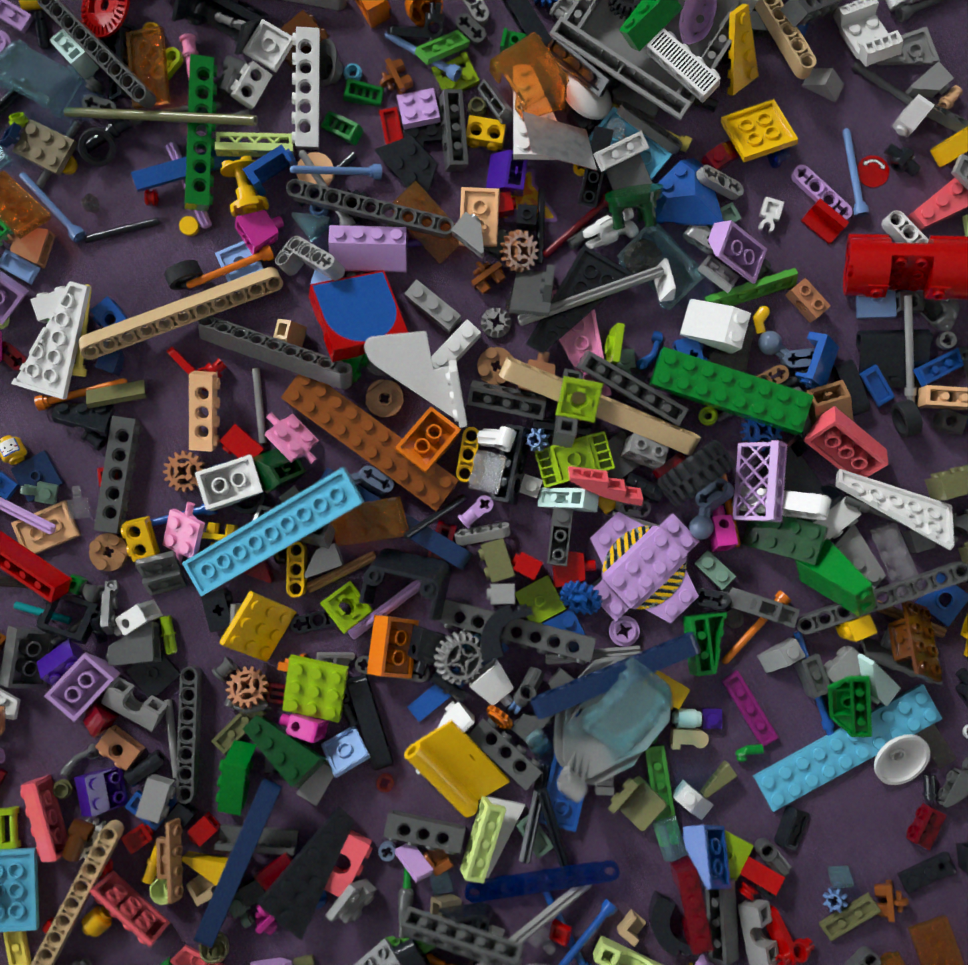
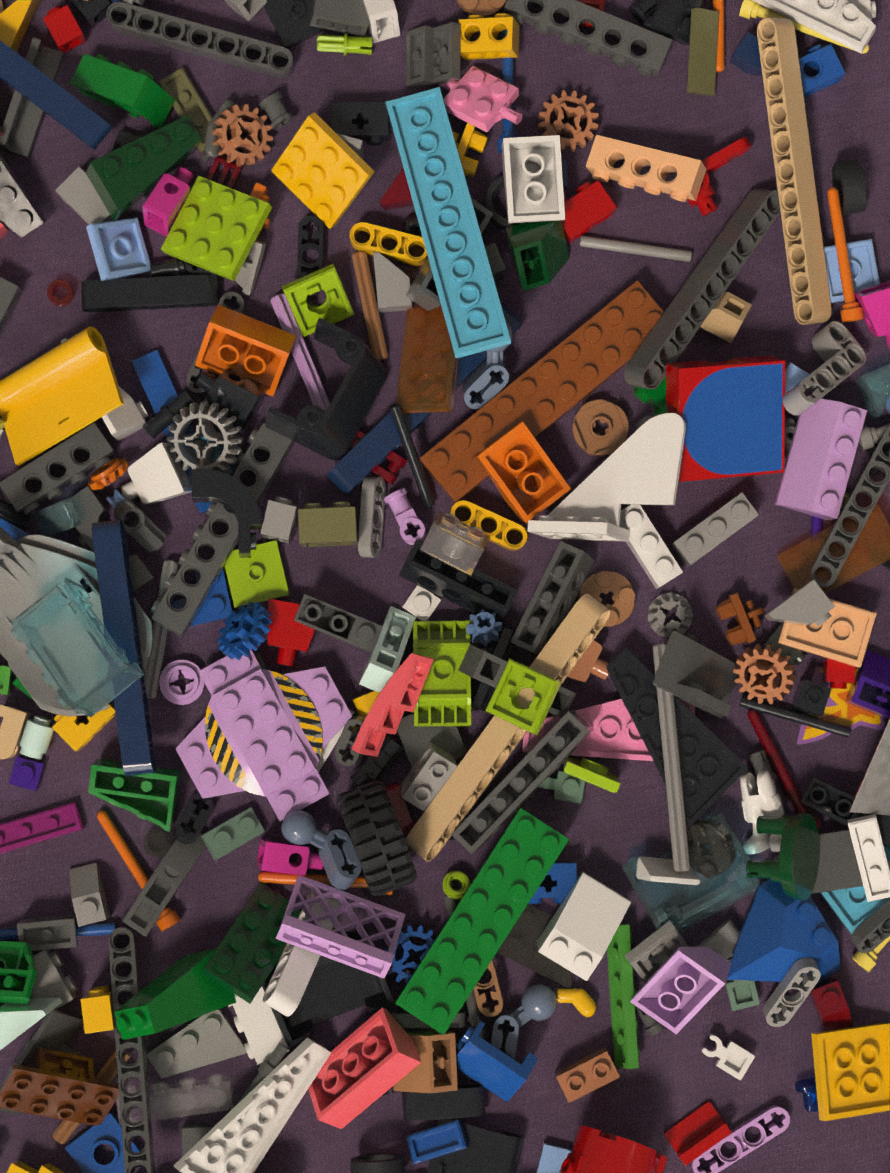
camera: 100 degrees right, 0 degrees up
(171, 735) = (202, 15): light grey bar -> none
(291, 437) = (576, 282): bright pink plate -> none
(500, 439) = (498, 573): white piece -> none
(526, 565) = (310, 565): red brick -> none
(644, 362) = (558, 815): blue piece -> none

